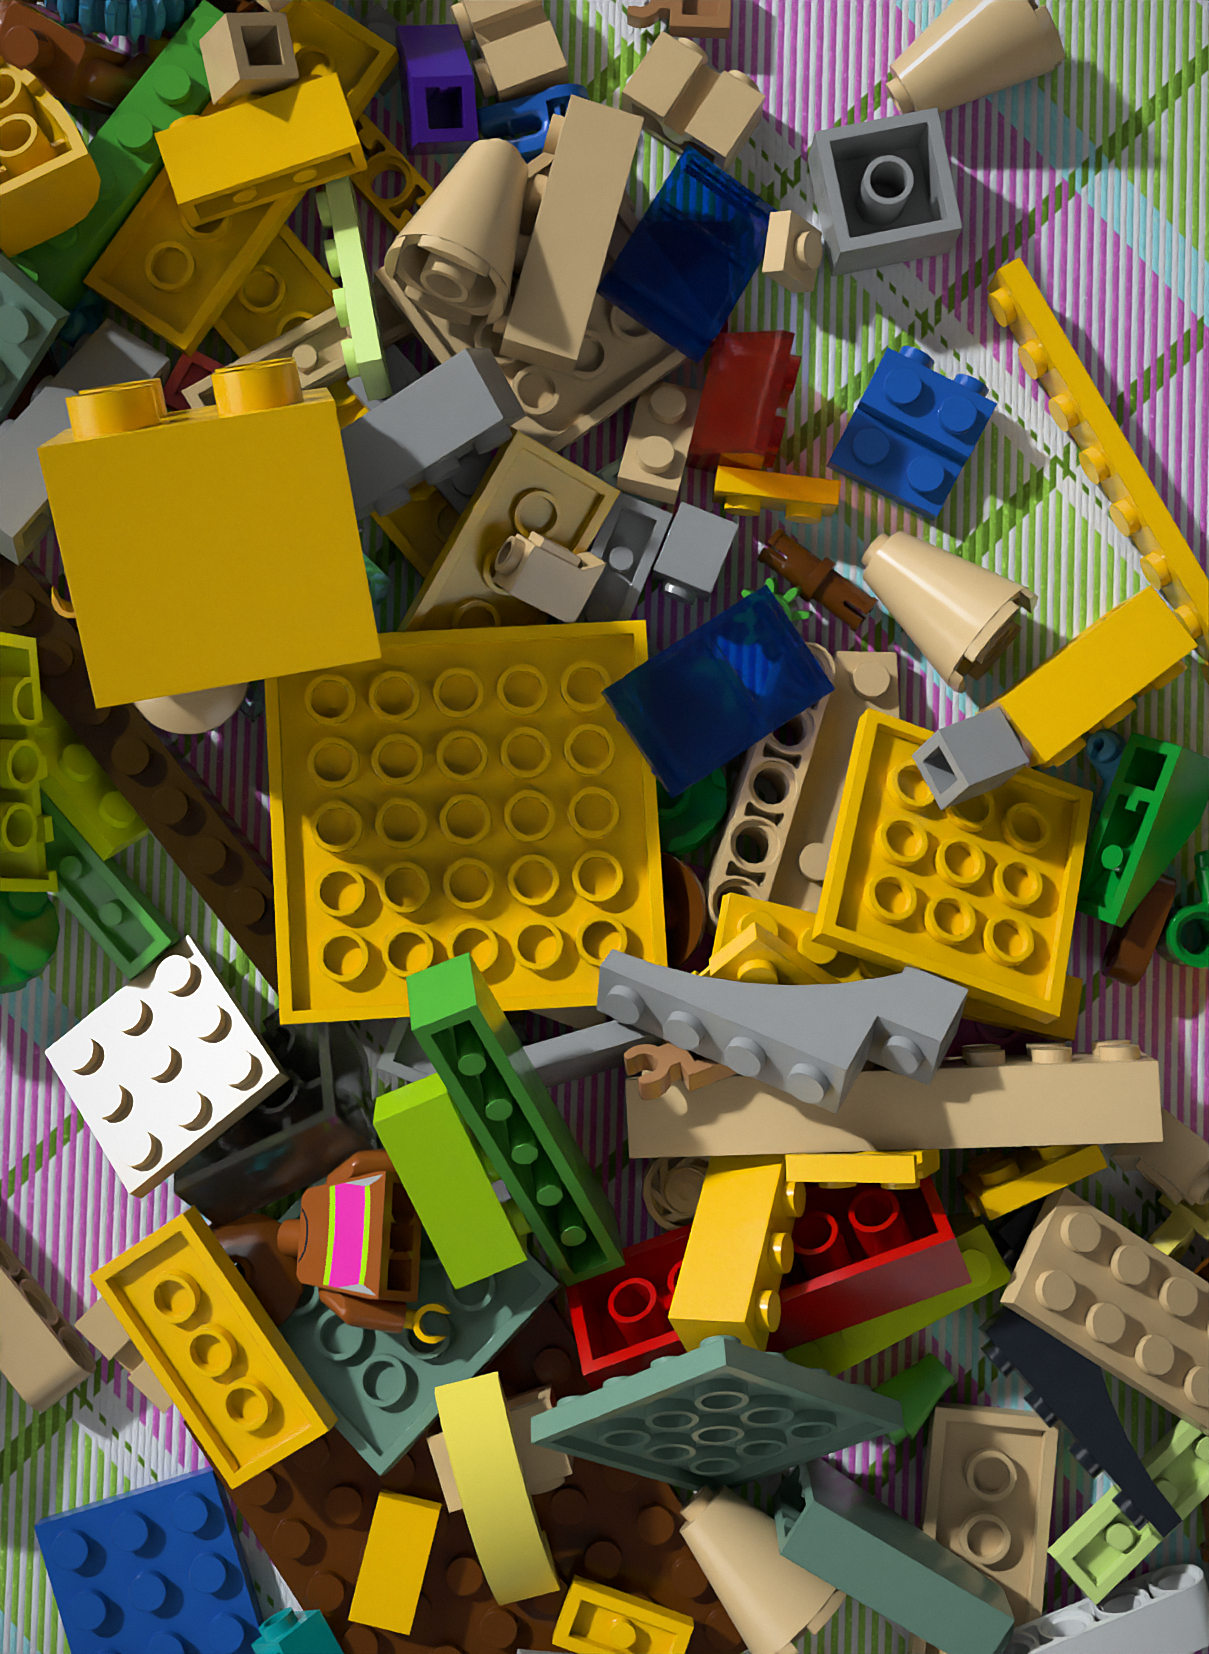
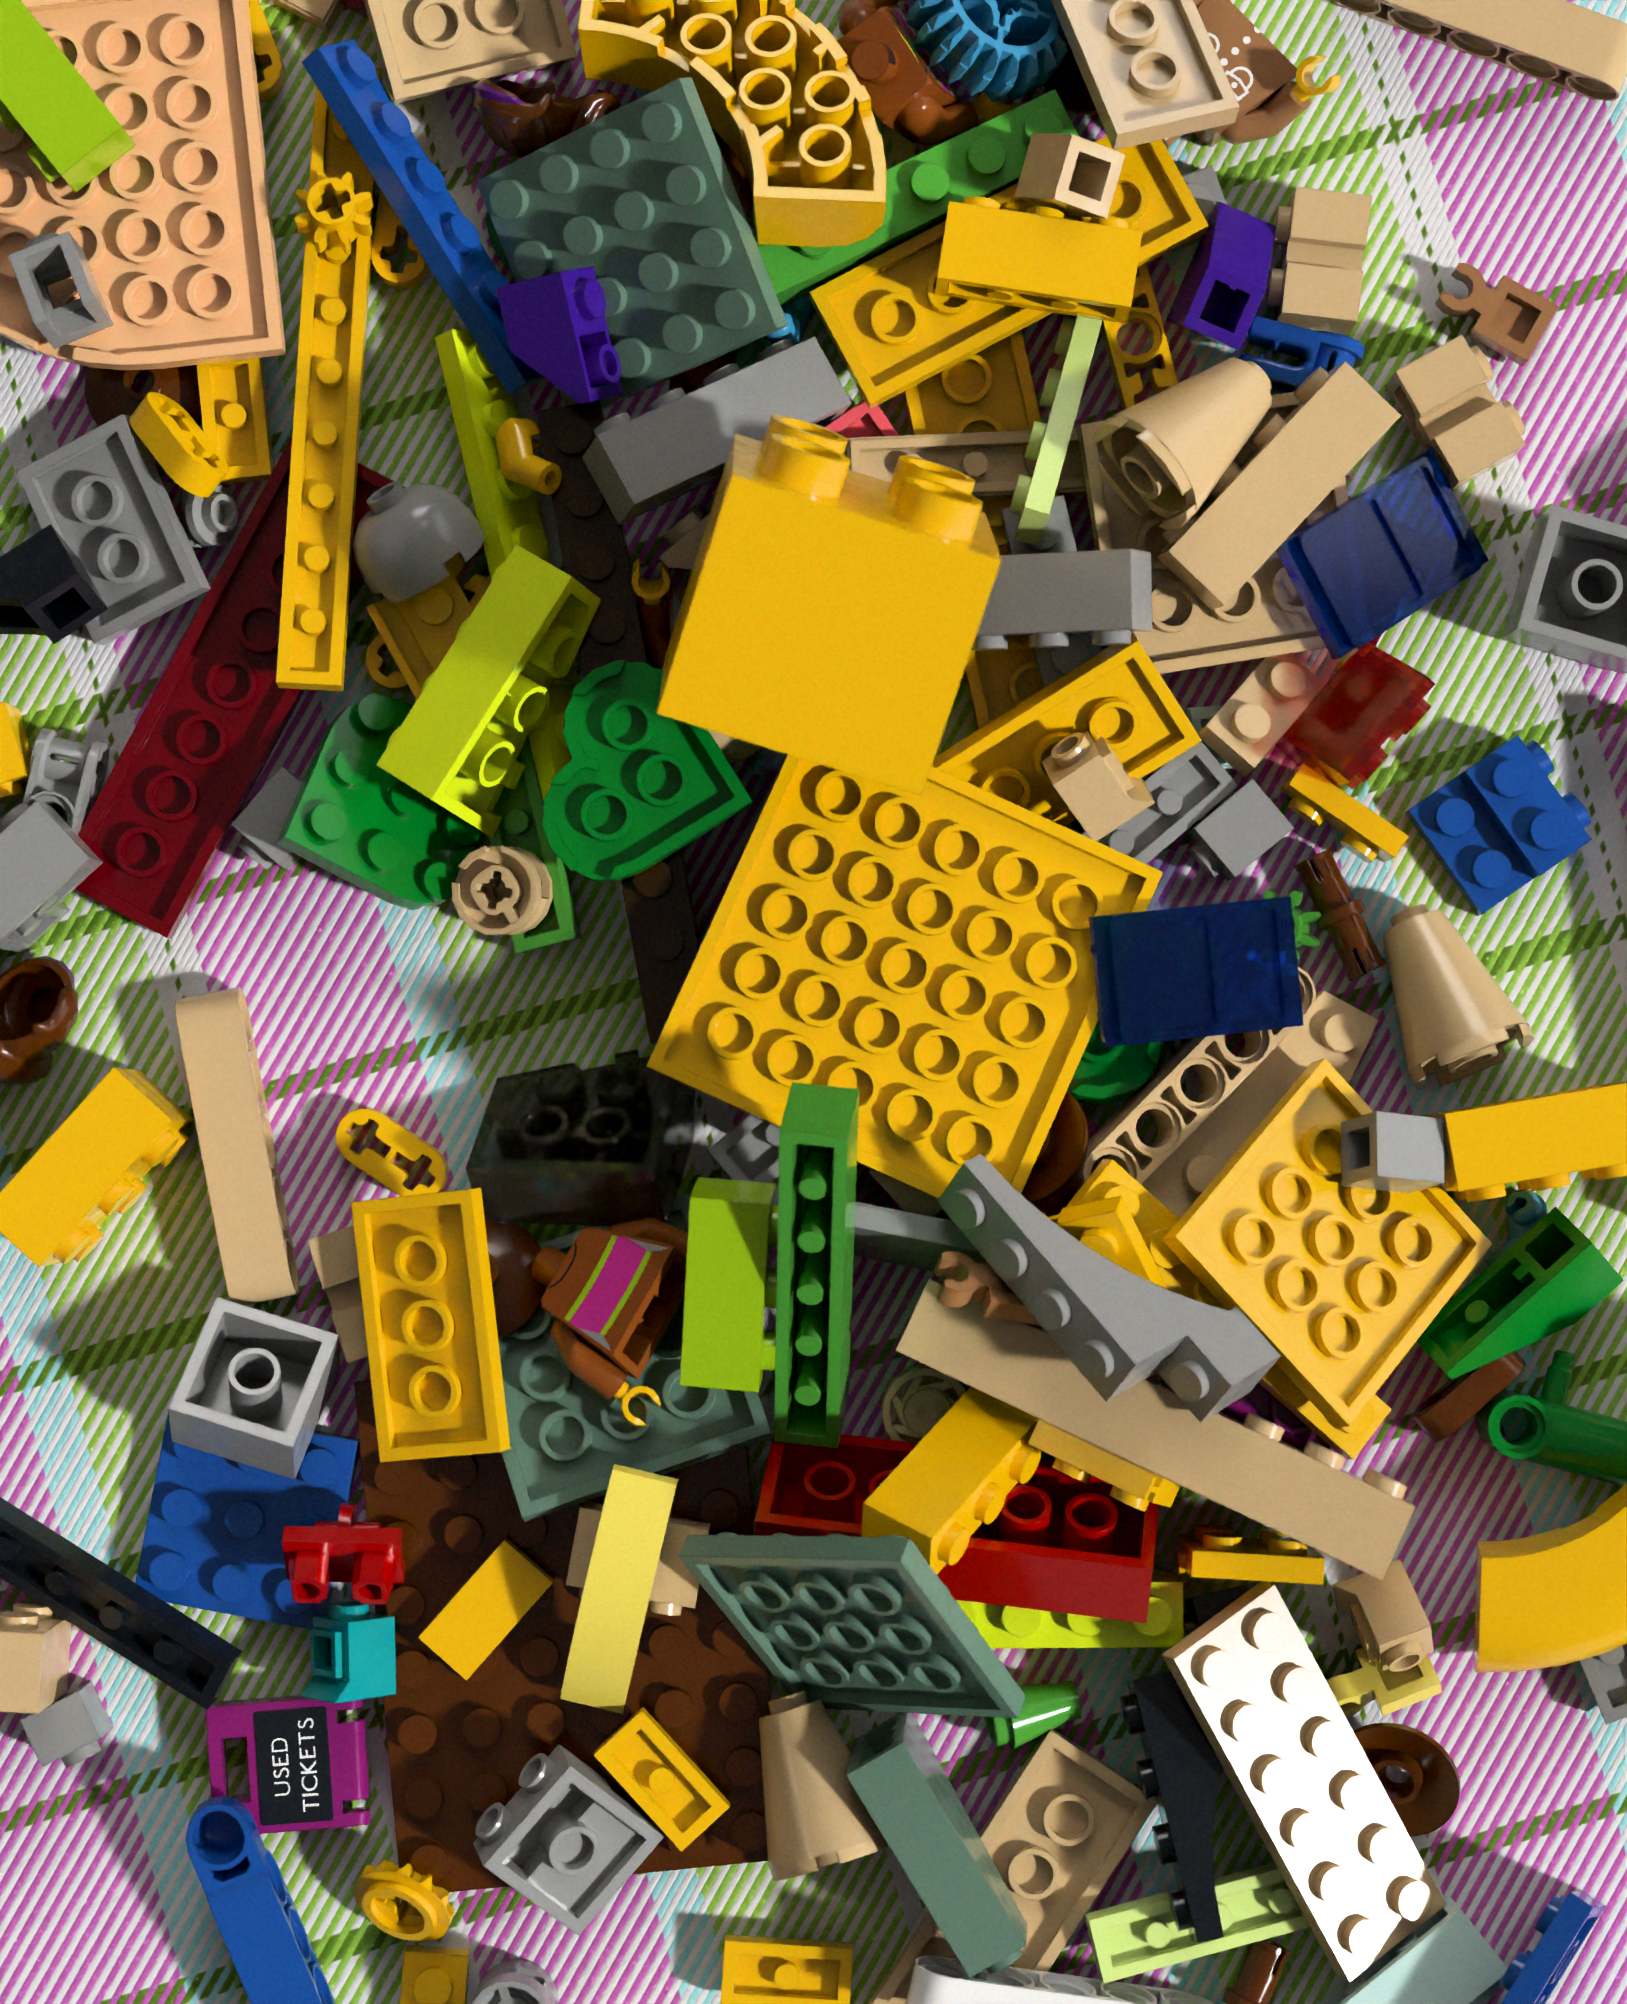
camera: 25 degrees right, 0 degrees up
(85, 934) = (502, 890): none -> tan wheel
(92, 1478) = (254, 1388): none -> light grey brick
(111, 1222) = (401, 1141): none -> yellow beam
(144, 779) = (634, 778): none -> green plate
(165, 1067) = (510, 1049): plate -> none
(242, 1578) = (343, 1553): none -> red hips
(792, 251) = (1476, 599): tan plate -> none

